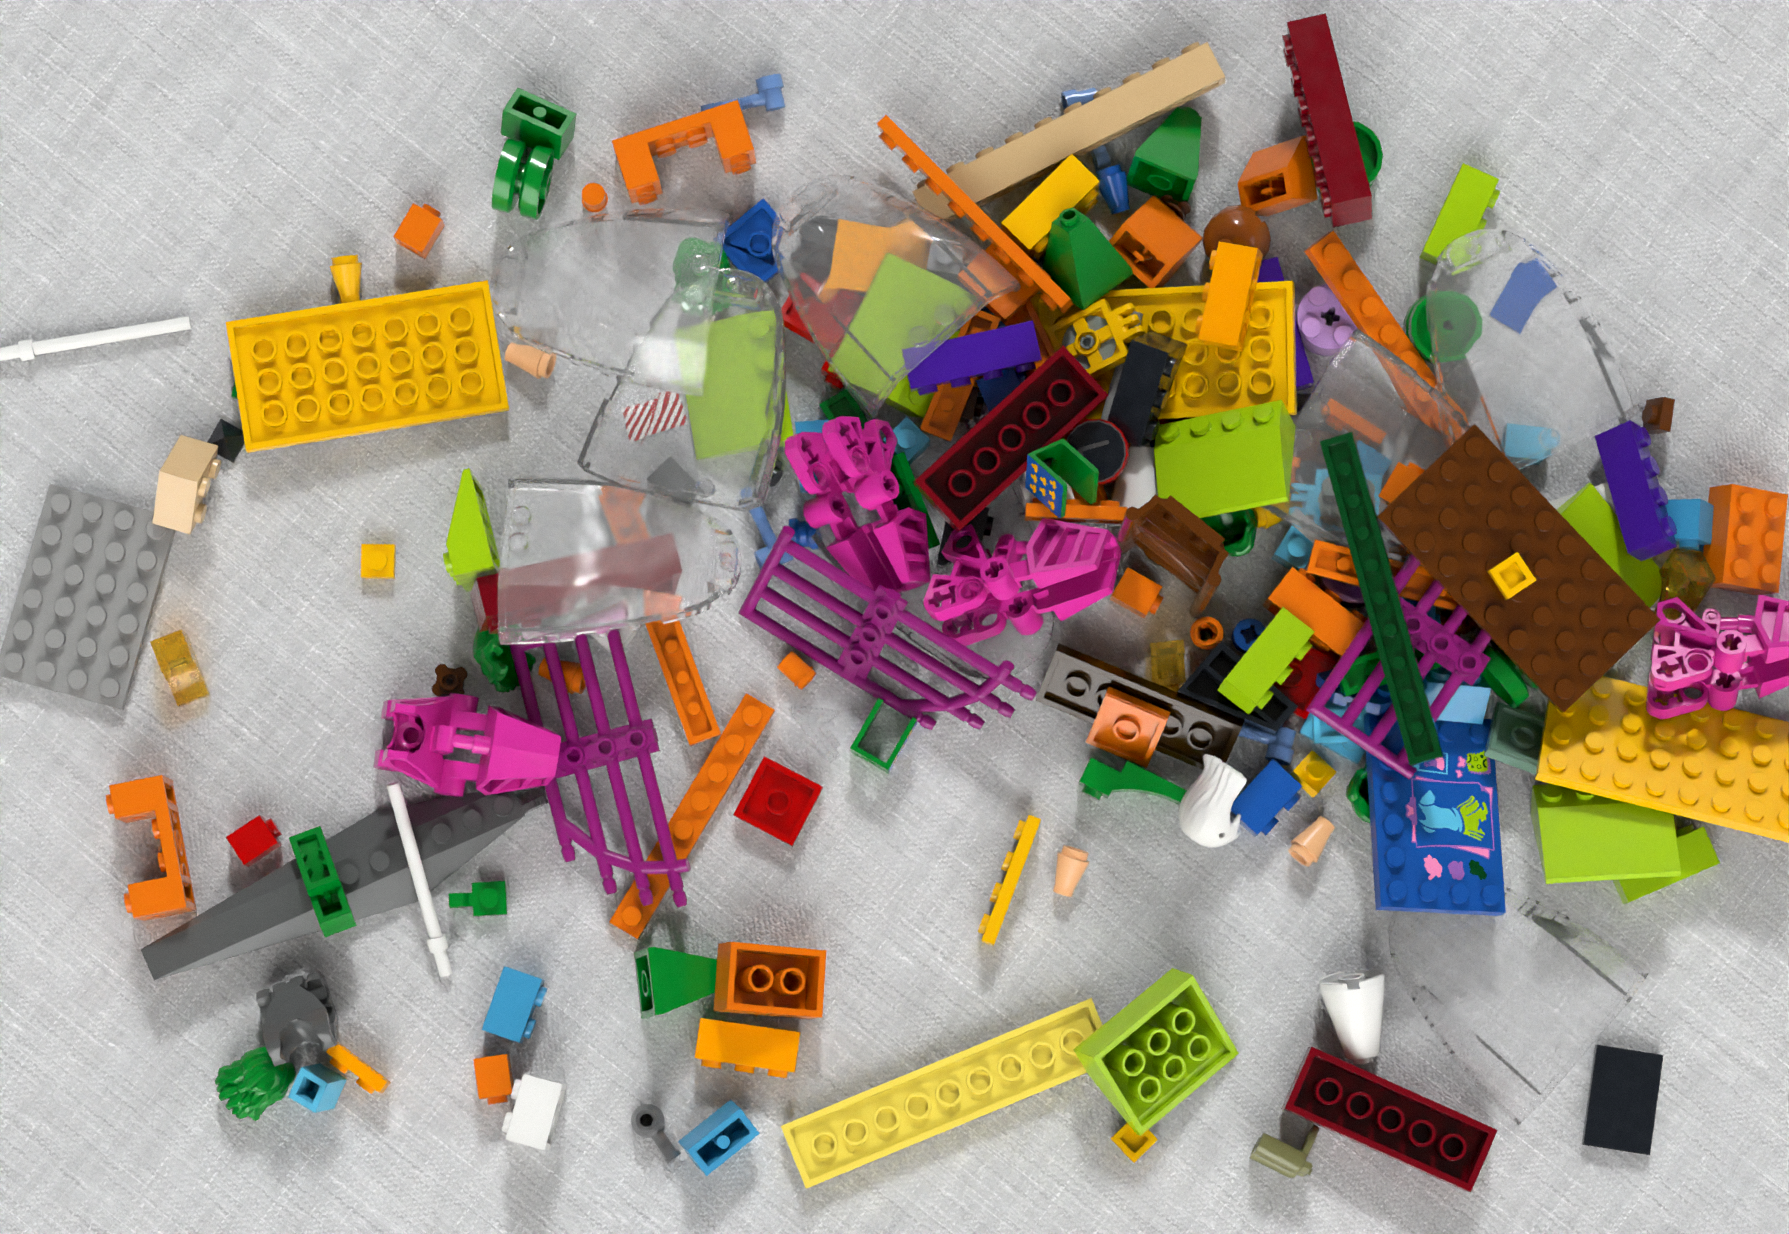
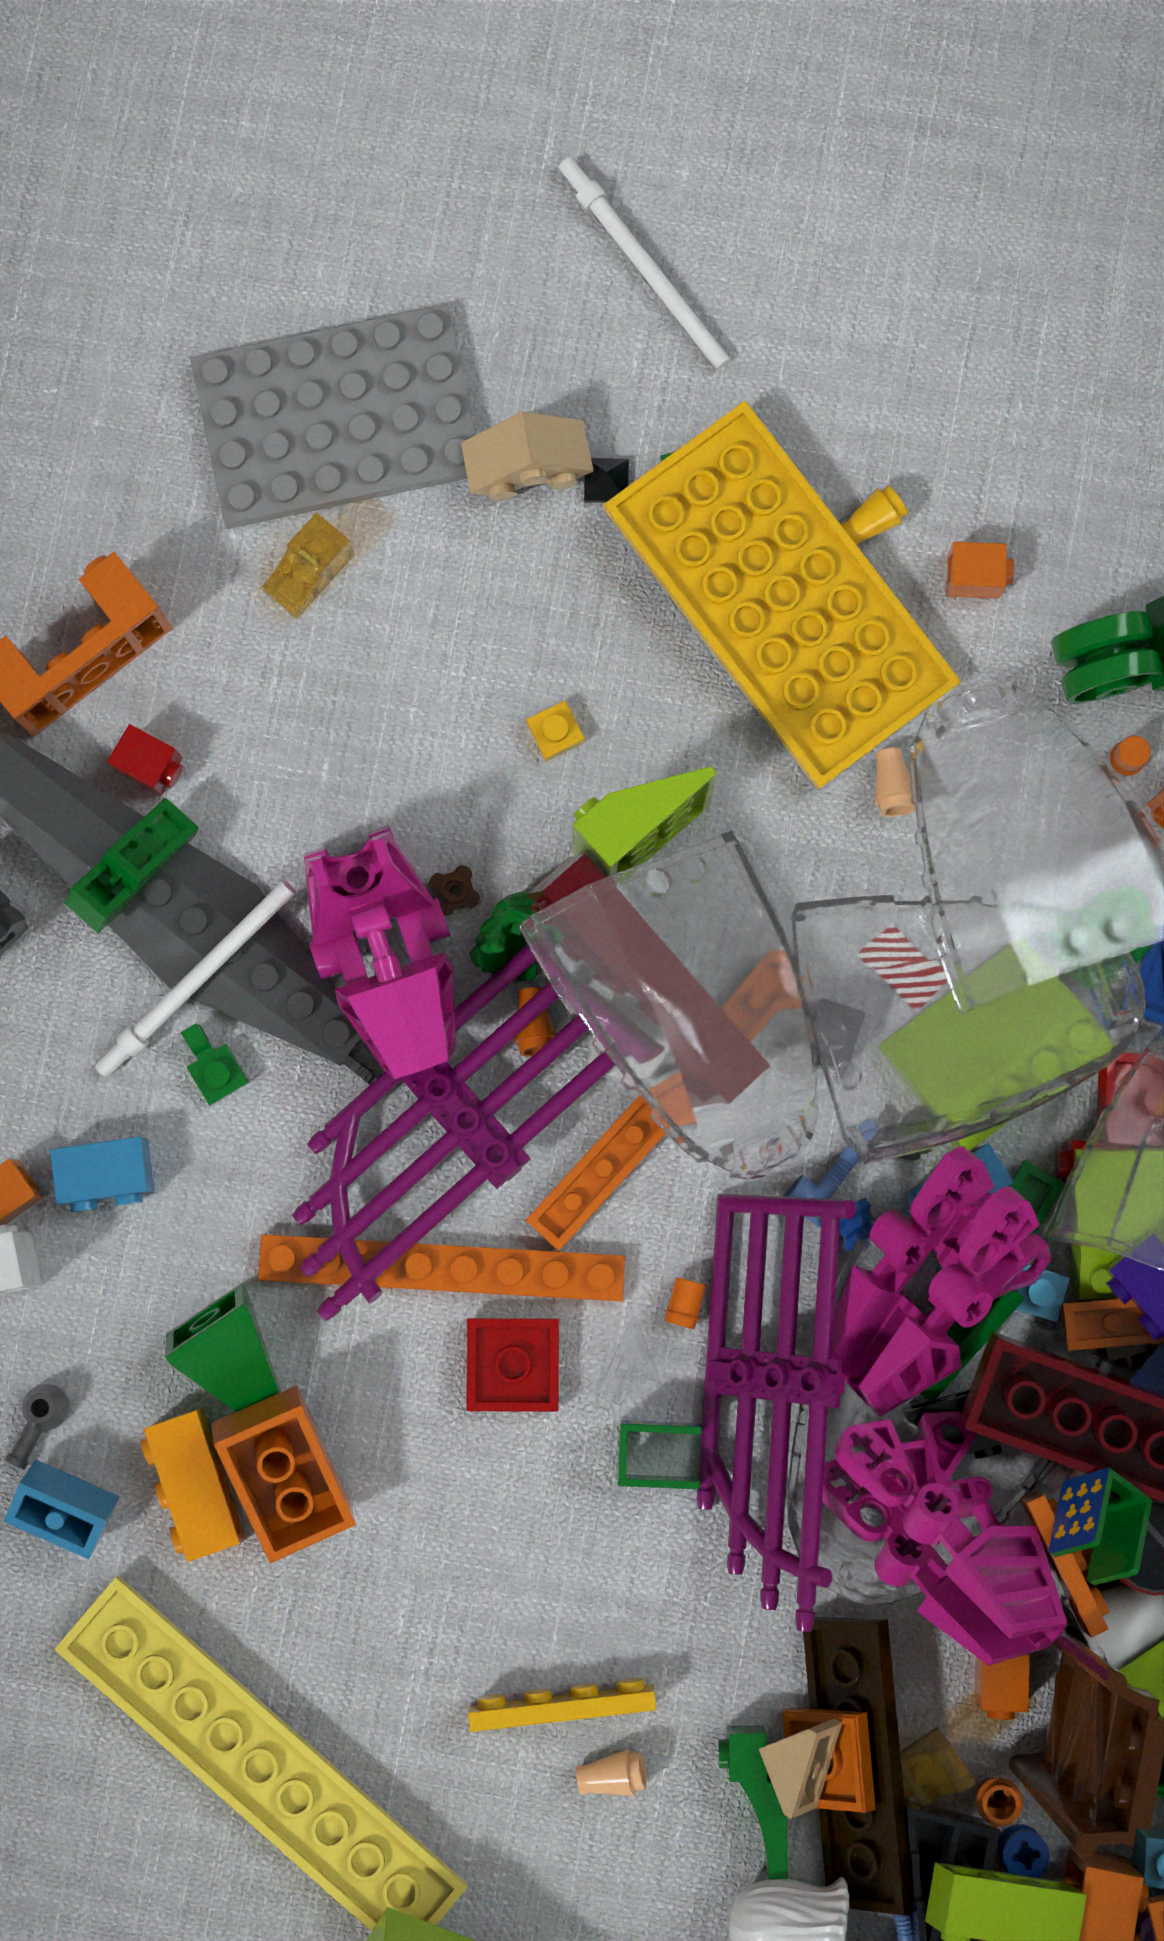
camera: 65 degrees right, 0 degrees up
(1120, 745) = (801, 1766): none -> tan slope

